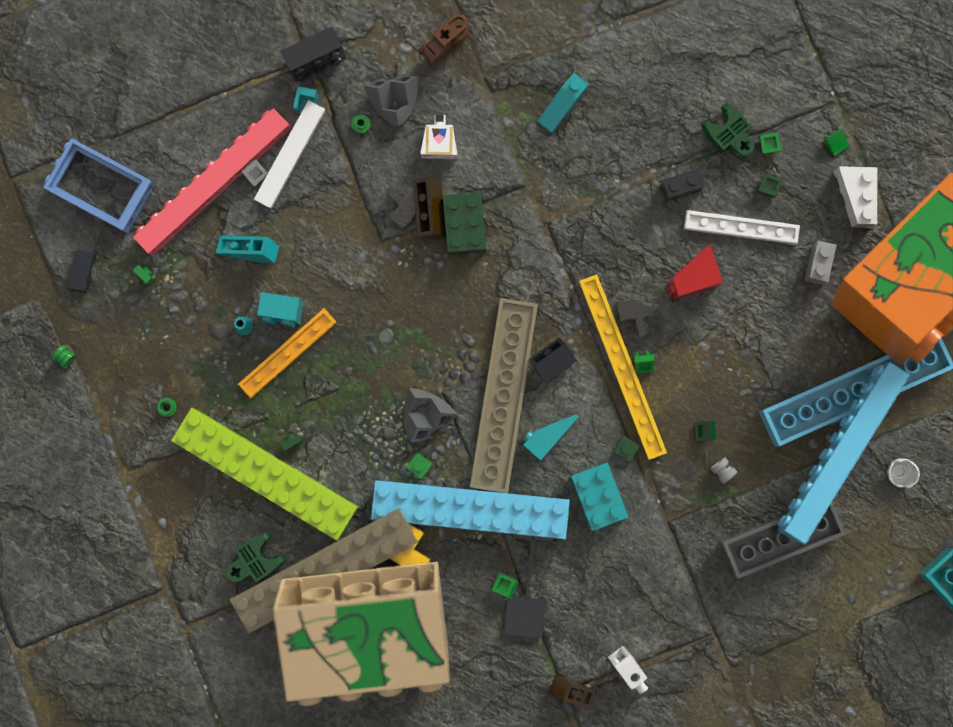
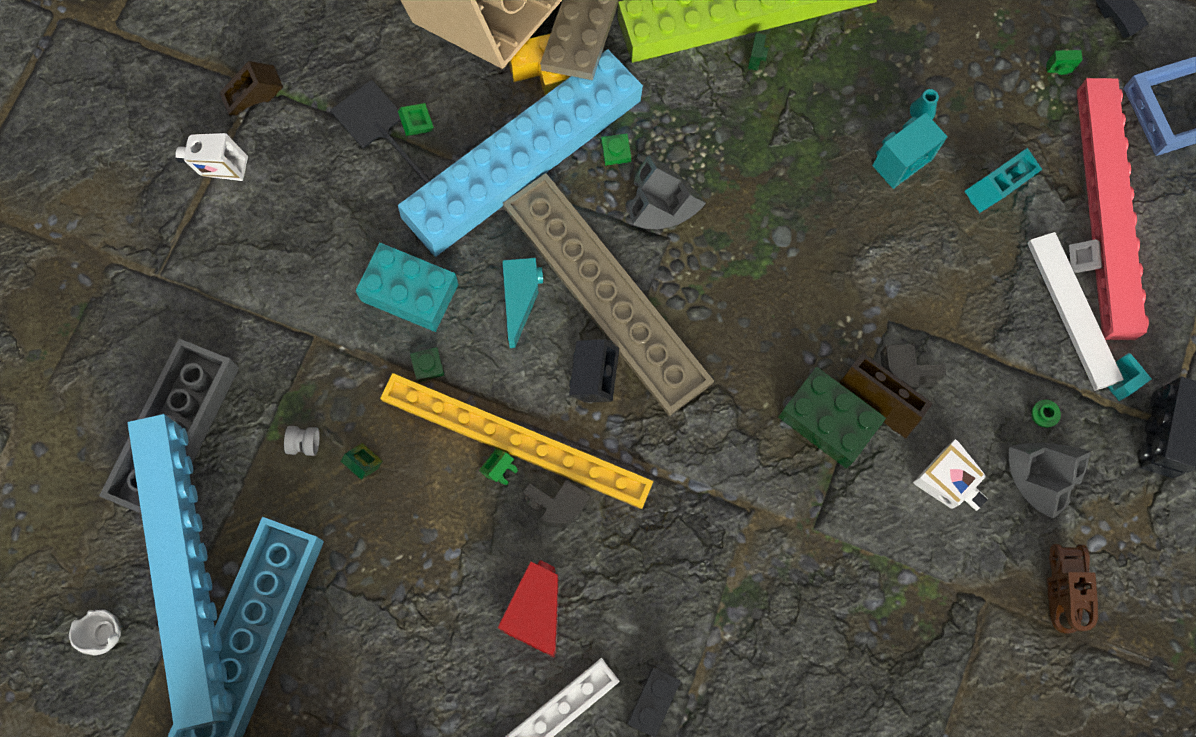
camera: 130 degrees right, 10 degrees down
(287, 353) = (854, 129): light orange tile -> none
(563, 102) = (876, 659): teal slope -> none

